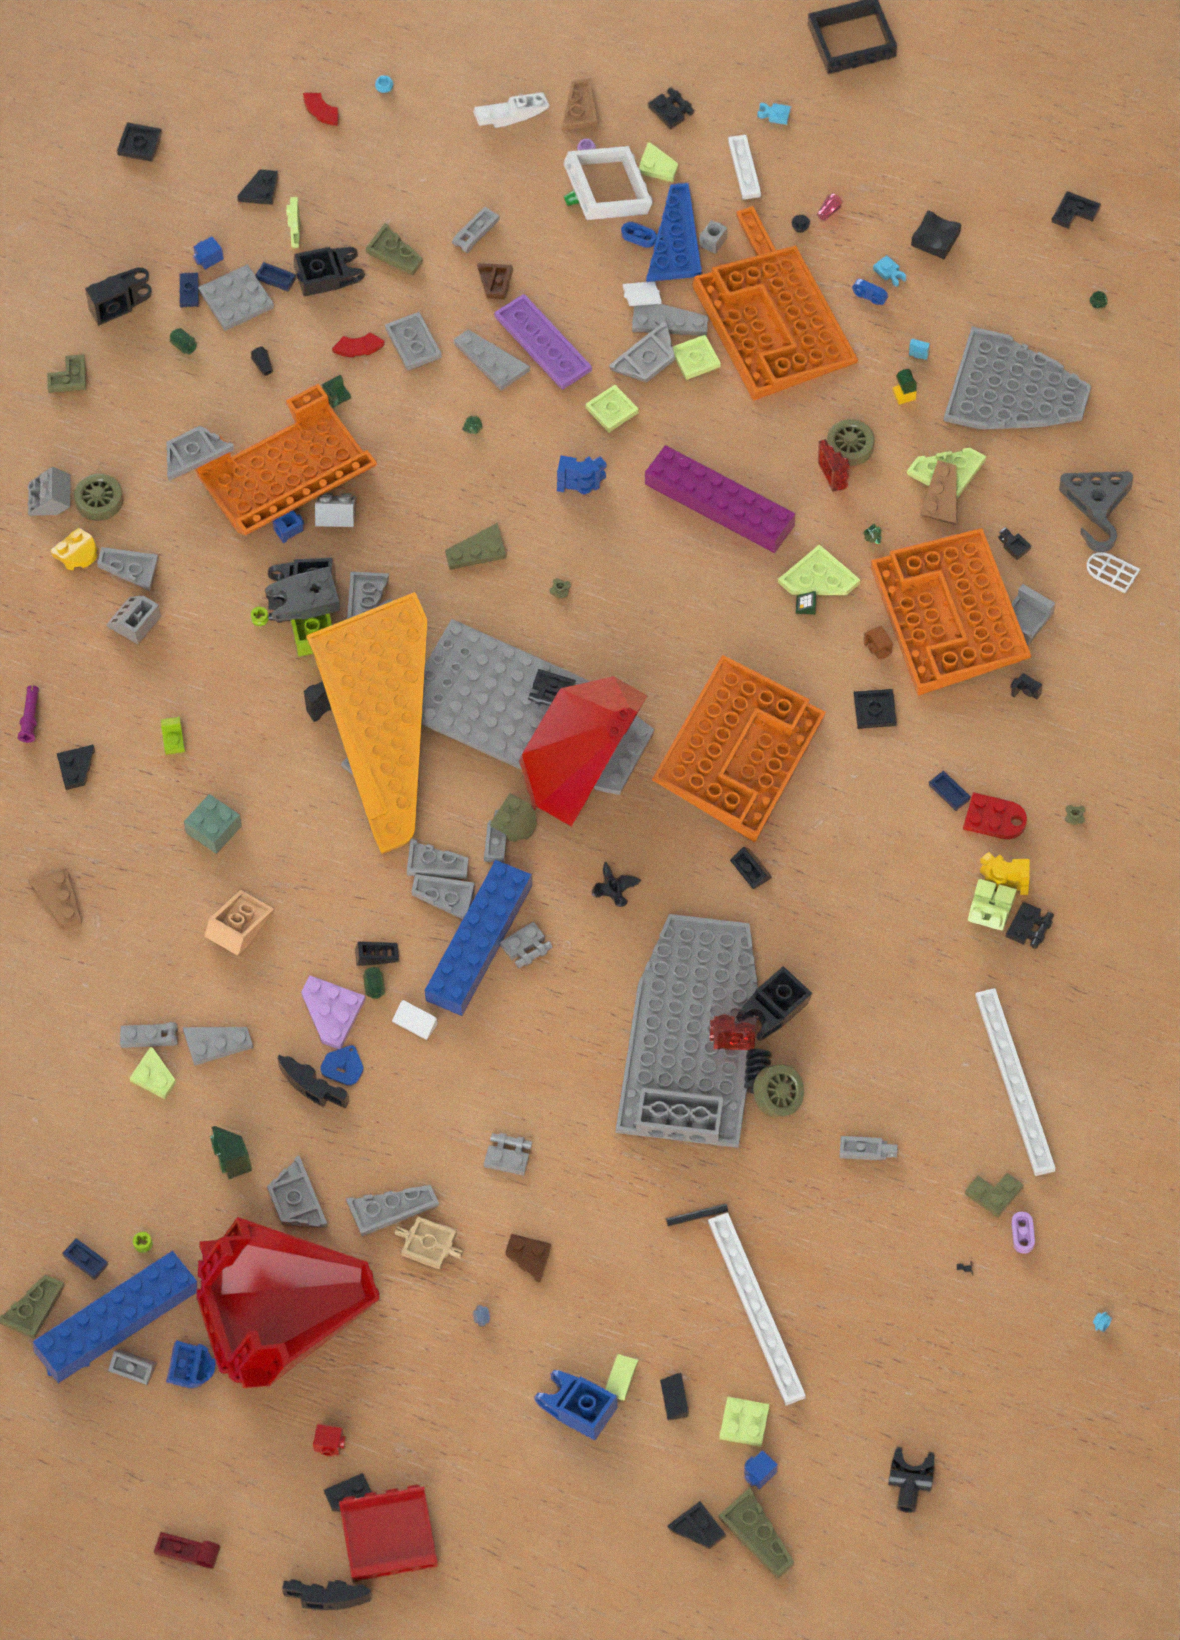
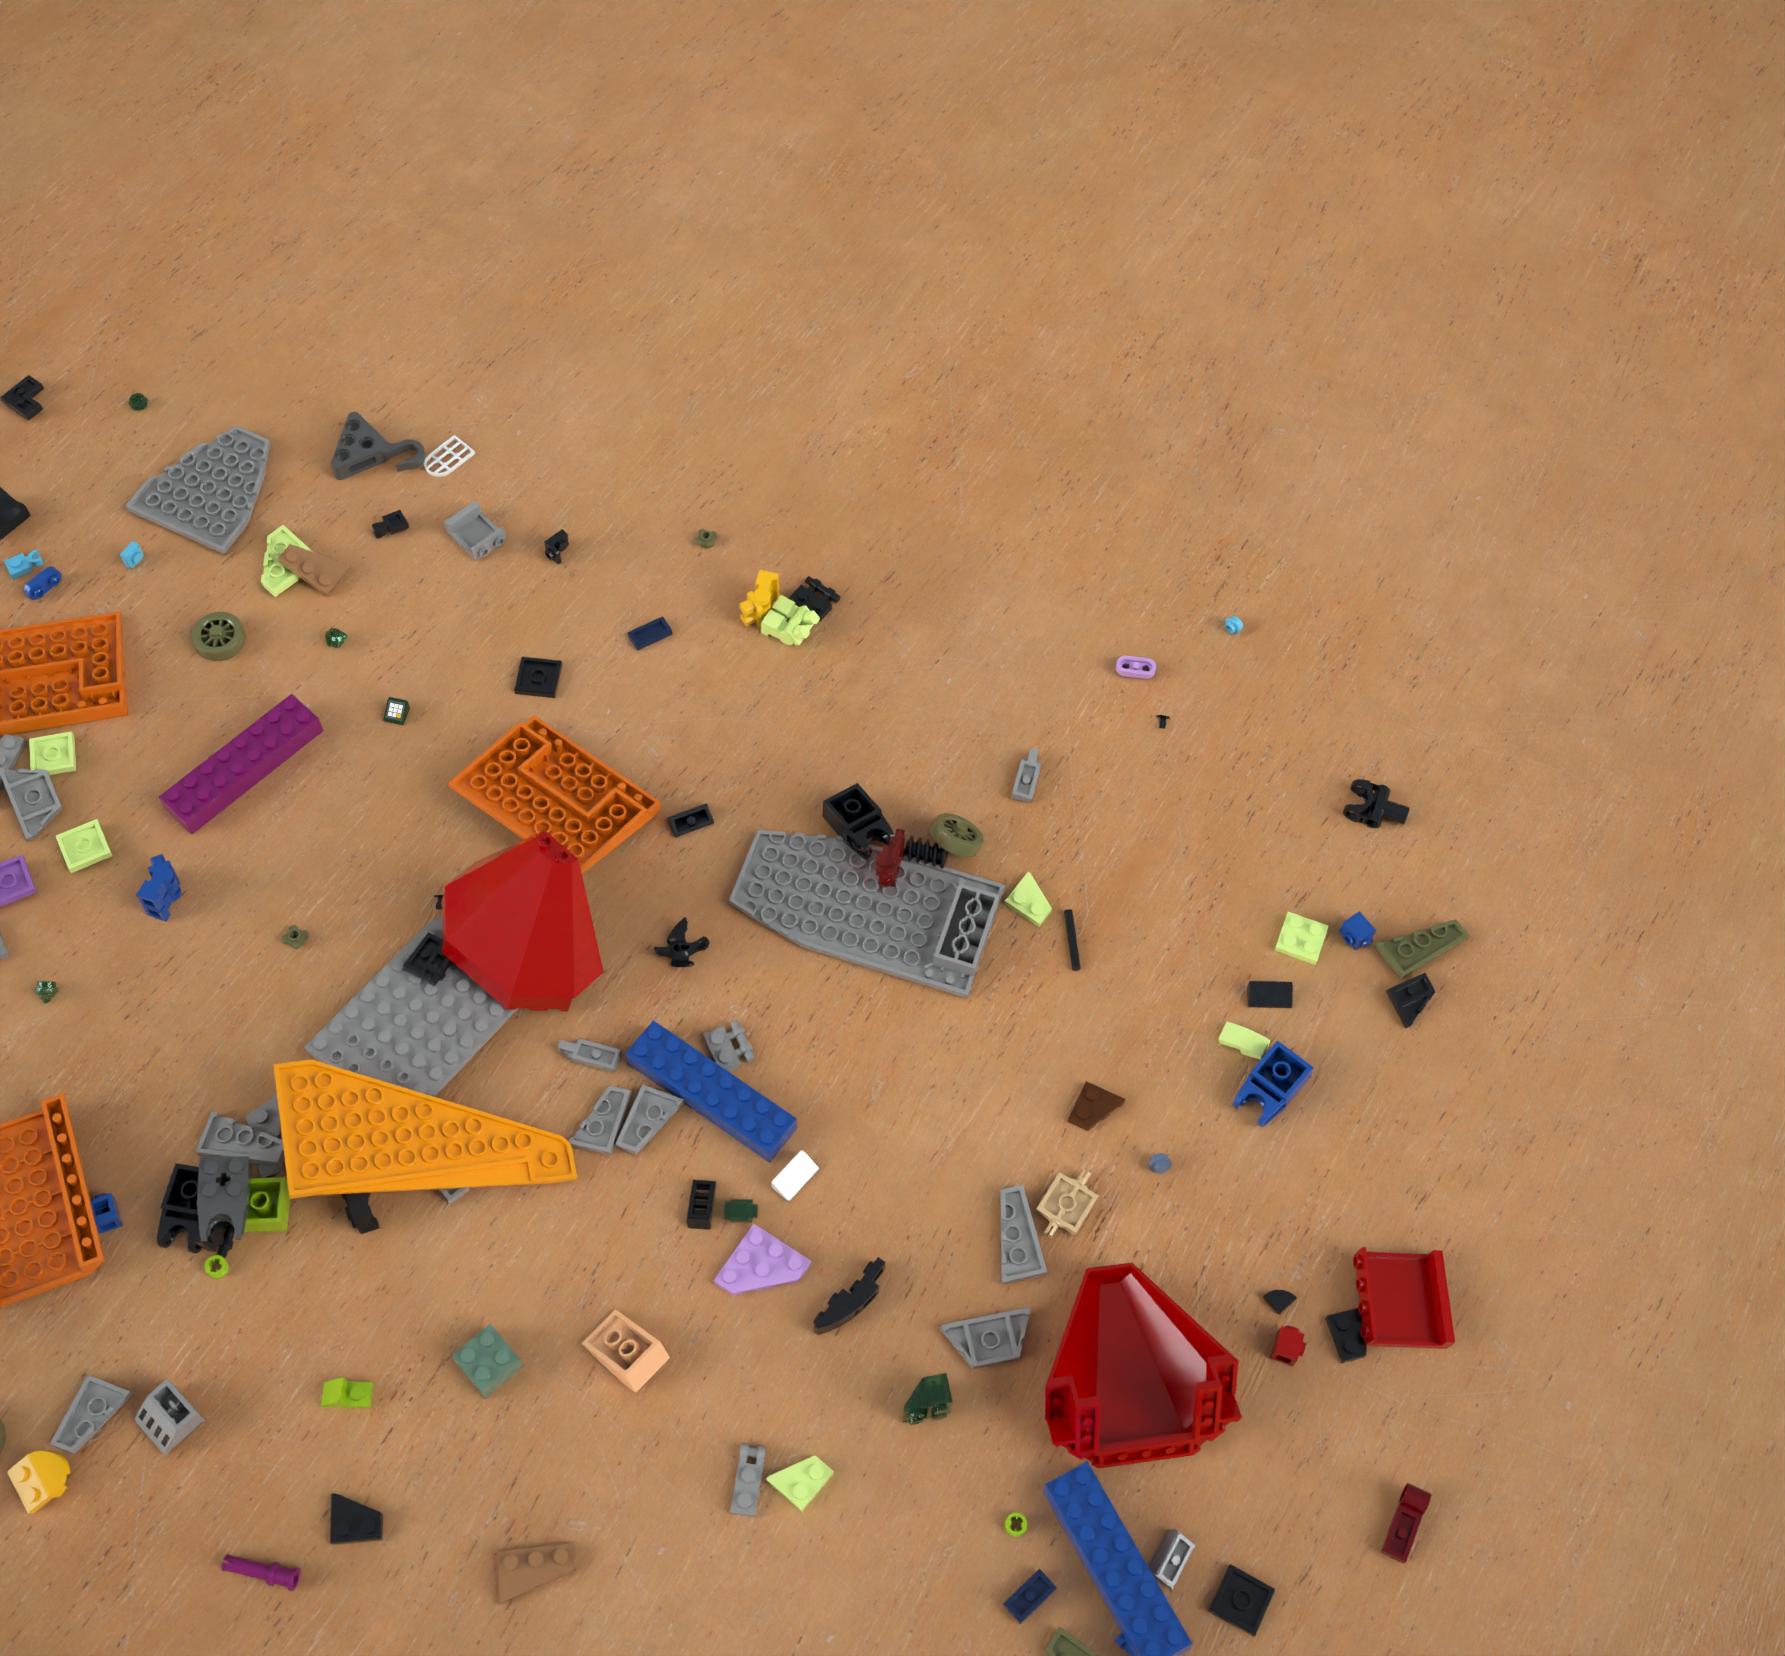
camera: 85 degrees left, 0 degrees up
(106, 1425) = (1241, 1600): none -> black tile
(190, 1365) = (1181, 1488): blue slope -> none
(216, 1042) = (774, 1402): light grey wing -> none
(335, 510) = (105, 1154): light grey slope -> none
(335, 1597) = (1469, 1366): black slope -> none
(345, 1060) = (826, 1259): blue piece -> none
(371, 1433) = (1279, 1299): none -> black tile
(477, 549) = (212, 1013): olive wing -> none
(506, 1159) = (979, 1110): light grey plate -> none
(515, 819) = (573, 1029): olive slope -> none
(729, 1171) = (1029, 901): none -> yellowish green wing
(756, 1309) = (1183, 903): white plate -> none
(819, 573) = (367, 693): yellowish green plate -> none
(833, 466) = (245, 653): clear red plate -> none
(878, 642) = (466, 656): dark orange brick -> none
(906, 387) = (174, 573): leg -> none
(949, 610) = (450, 590): orange slope -> none
(994, 817) = (688, 604): red plate -> none
(994, 1198) = (1094, 682): olive plate -> none
(1015, 1082) = (978, 642): white plate -> none

